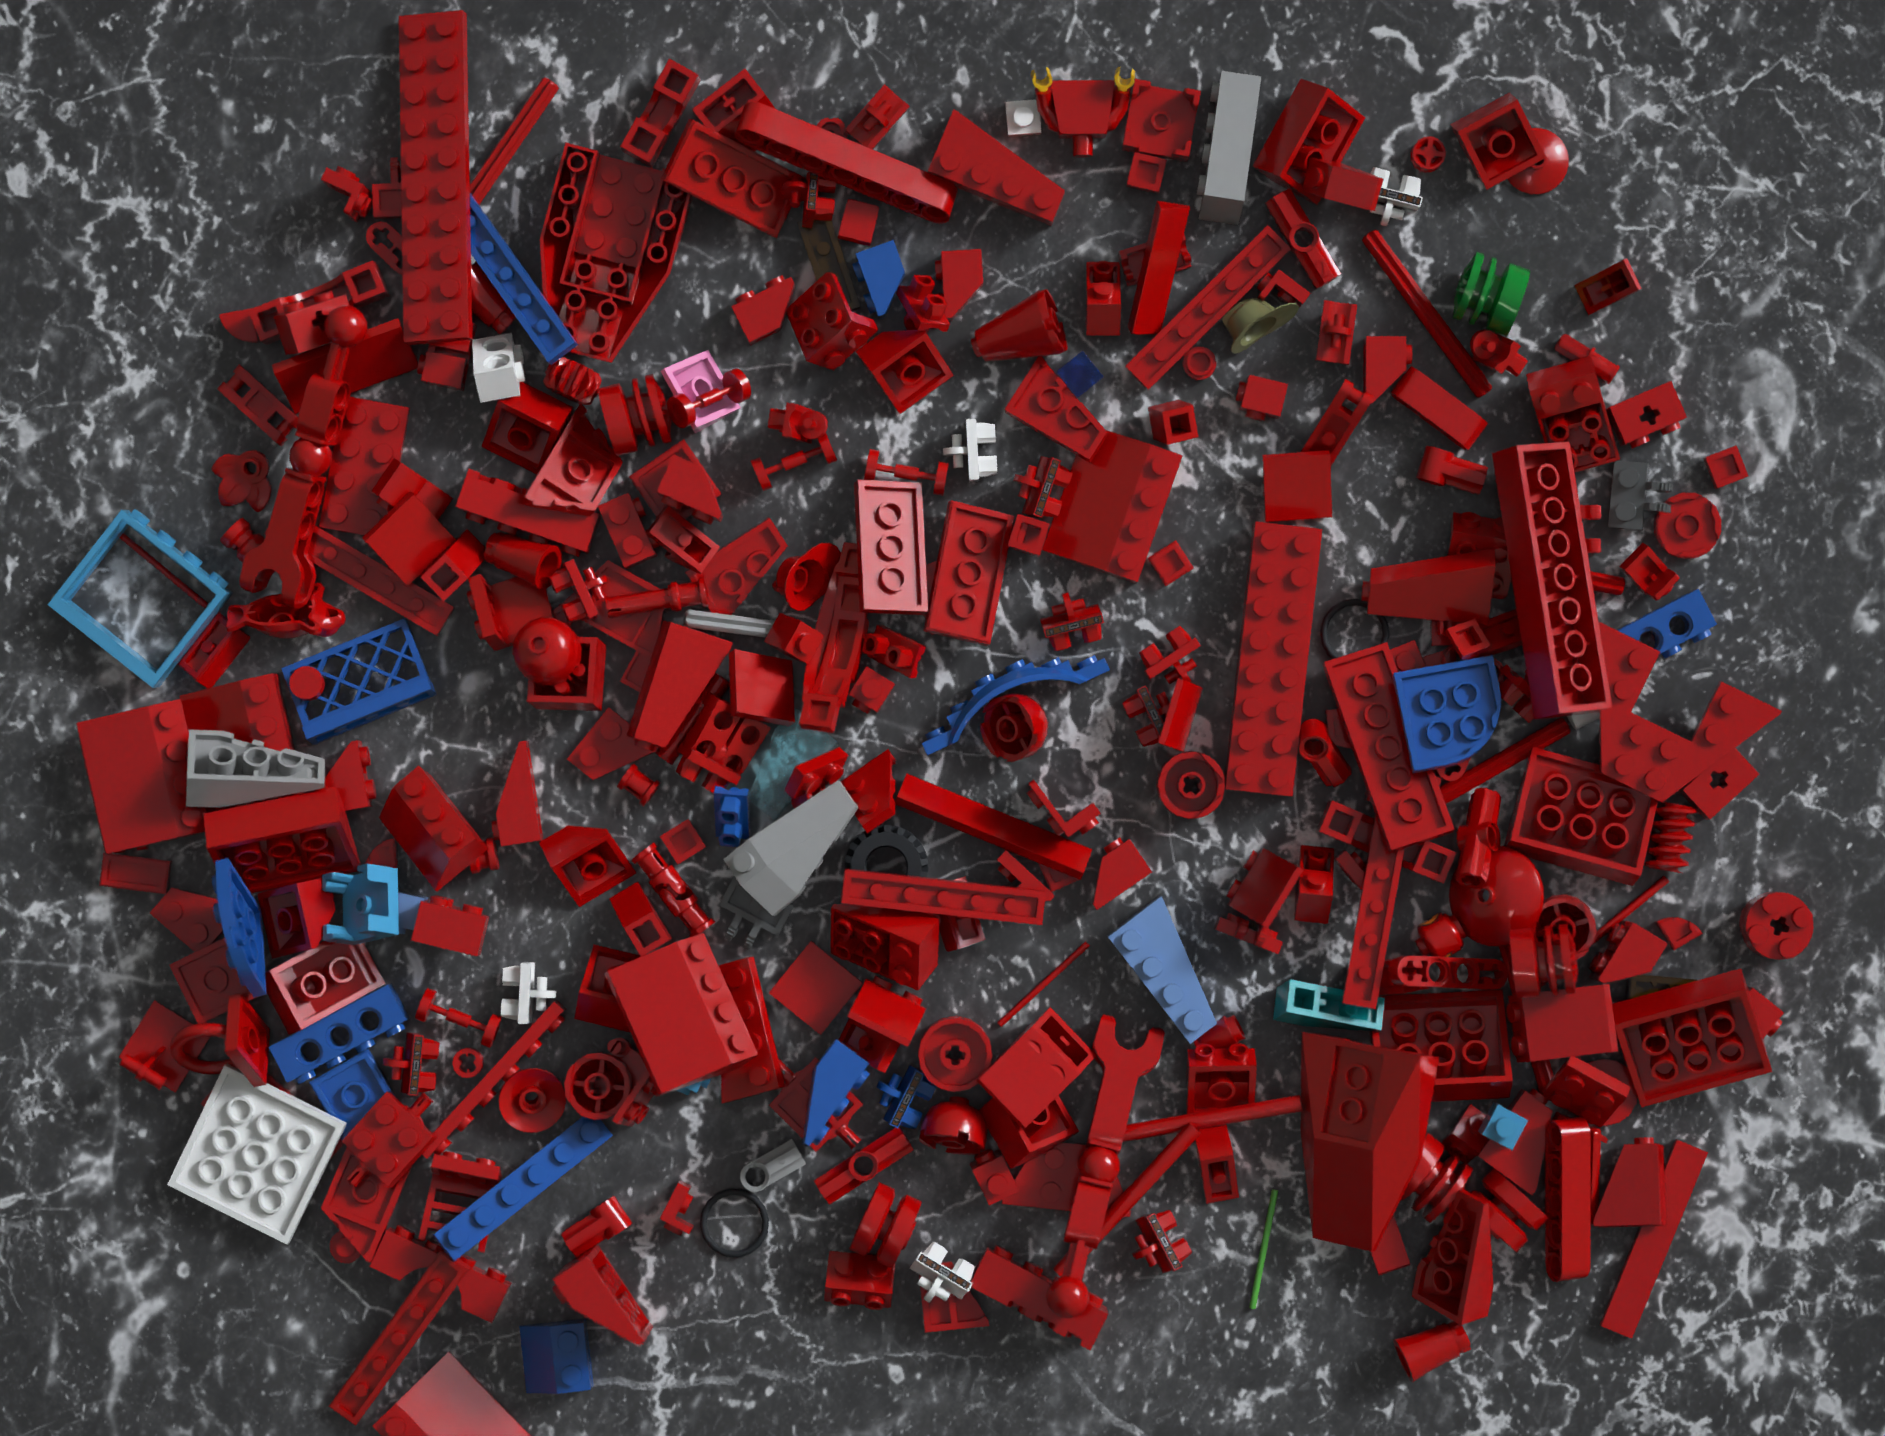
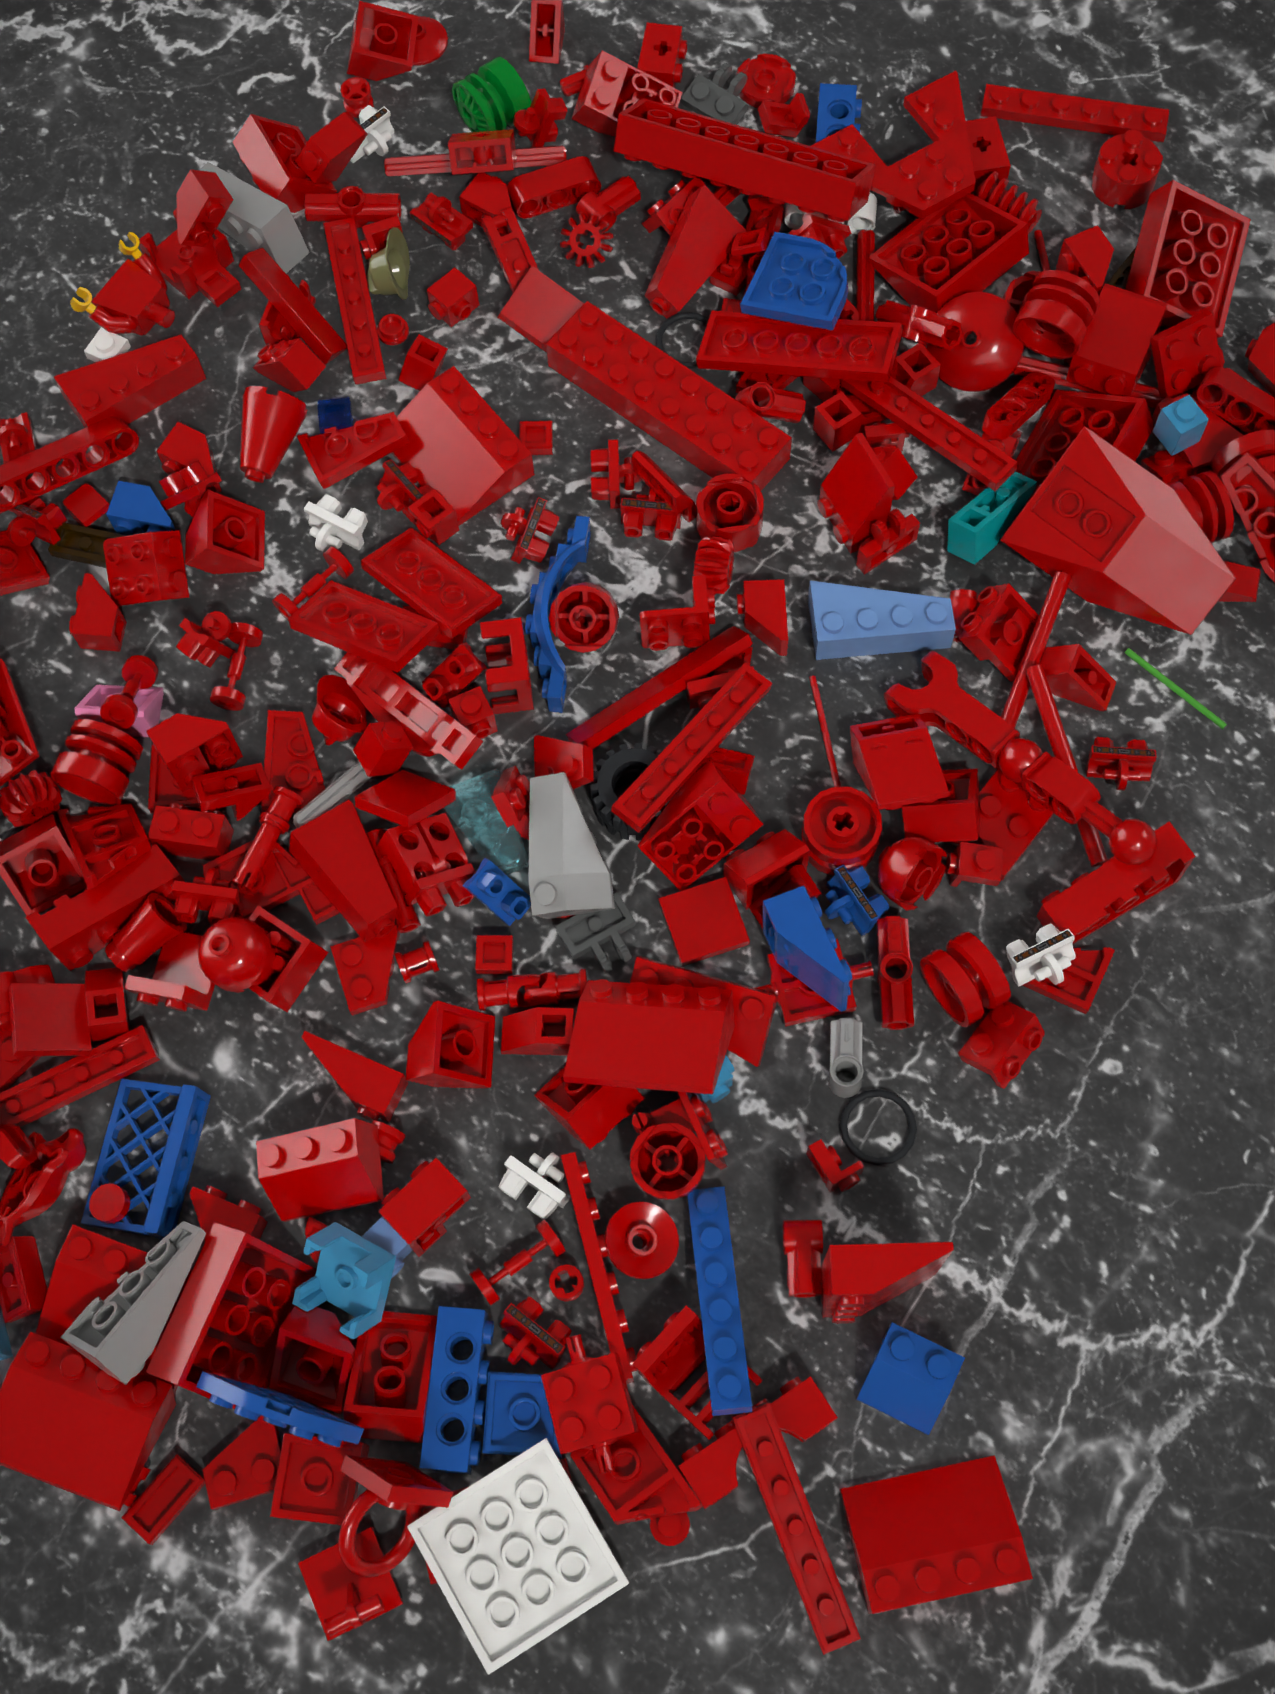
camera: 60 degrees left, 20 degrees down
(935, 698) = (512, 664): none -> red panel
(1131, 803) = (716, 561): none -> red gear
(1199, 117) = (200, 207): none -> red slope
(1397, 469) = (583, 229): none -> red gear
(1423, 328) = (482, 151): none -> red brick
(1440, 936) = (977, 400): red head -> none
(1725, 467) = (738, 32): red plate -> none
(1826, 837) = (1073, 112): none -> red plate

